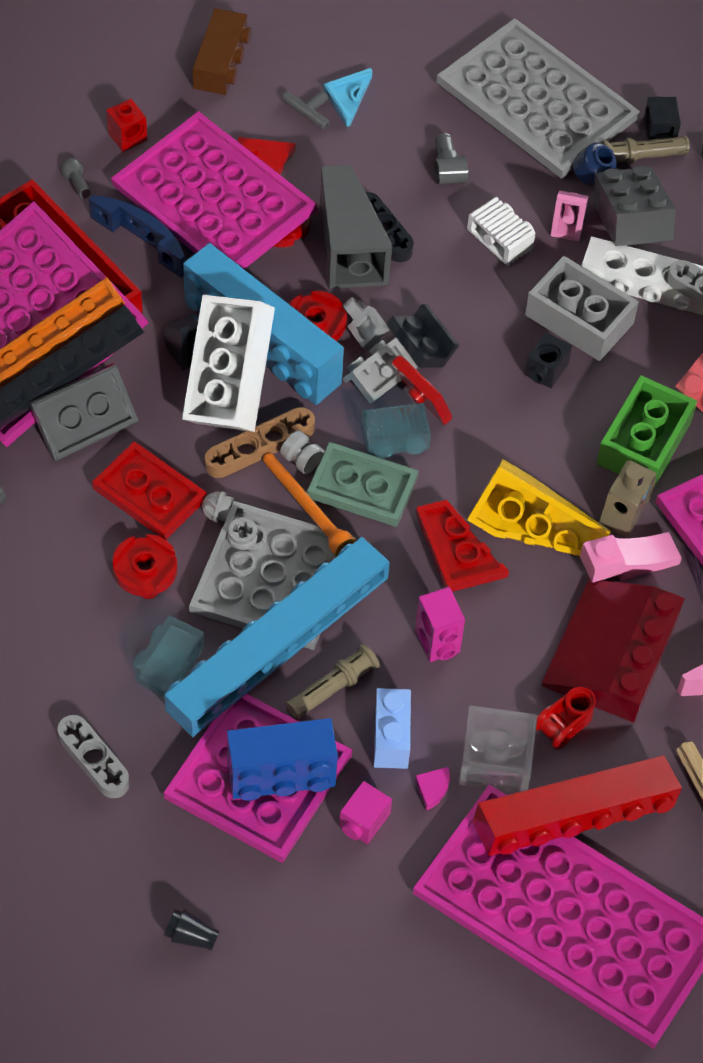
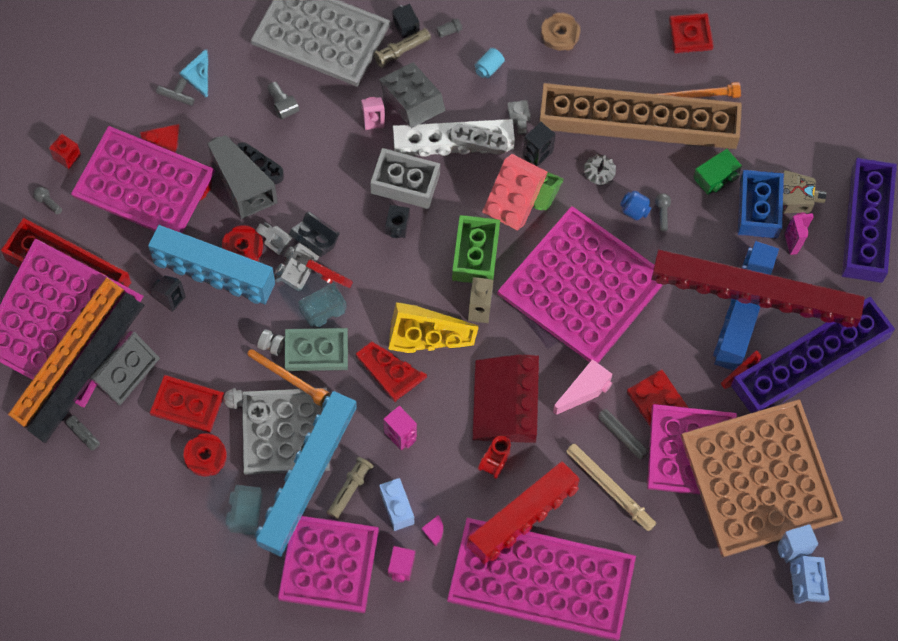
camera: 20 degrees left, 10 degrees up
(94, 771) = (227, 599): light grey beam -> none
(116, 213) = (83, 218): dark blue slope -> none
(221, 51) = (104, 73): reddish brown brick -> none
(228, 363) = (204, 304): white brick -> none
(258, 440) = (243, 345): medium nougat beam -> none
(282, 759) = (342, 554): blue brick -> none
(498, 749) = (464, 494): clear brick -> none
(501, 230) = (334, 139): white brick -> none
(592, 160) = (374, 70): dark blue head -> none
(628, 557) = (495, 336): bright pink slope -> none

